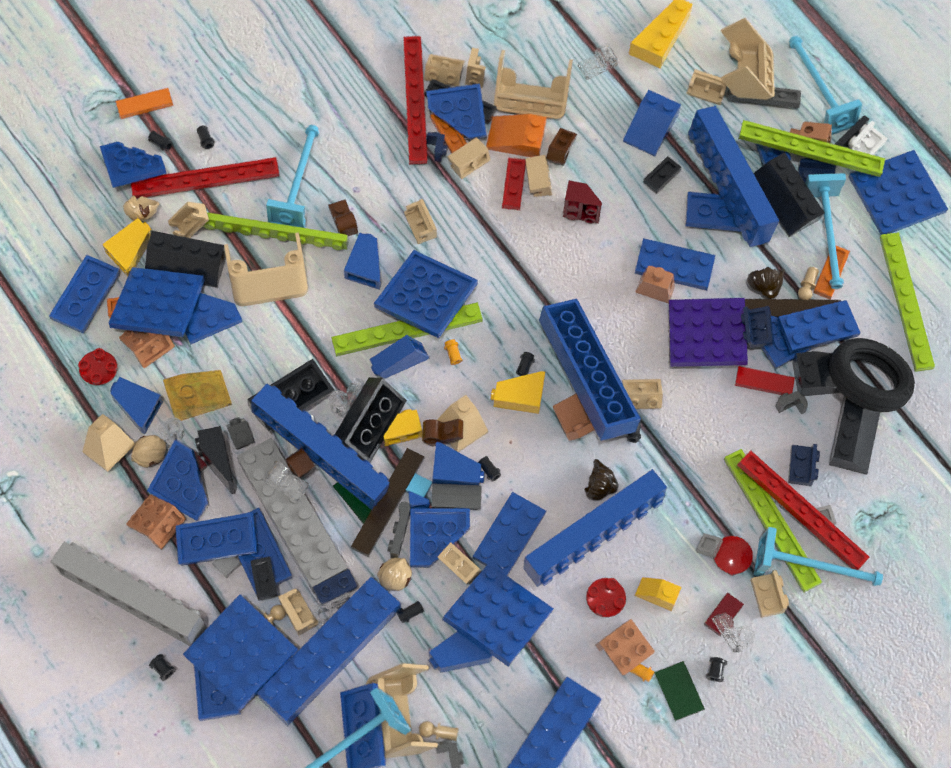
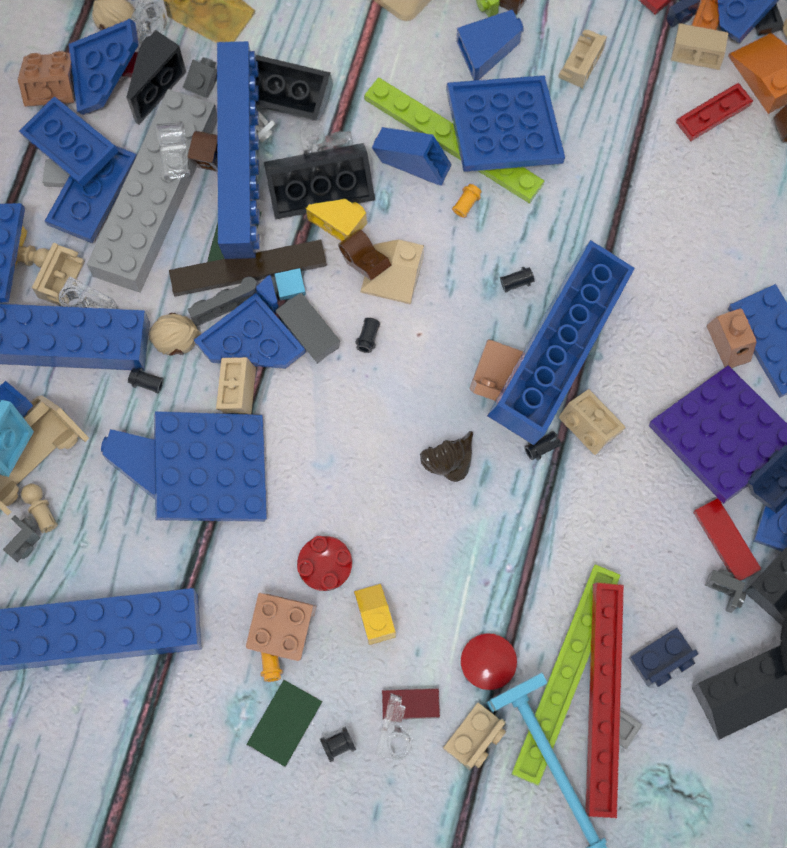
camera: 55 degrees right, 5 degrees up
(264, 578) = (61, 214): black plate -> none
(334, 587) = (108, 287): dark blue bracket -> none
(455, 468) = (336, 301): blue slope -> none
(509, 534) = (313, 411): blue plate -> none
(520, 393) = (480, 299): yellow slope -> none
(538, 176) = (745, 126): tan hinge -> none
(581, 203) = (750, 186): dark red slope -> none
(595, 528) = (387, 490): blue brick -> none
(709, 545) = (476, 627): light grey tile -> none

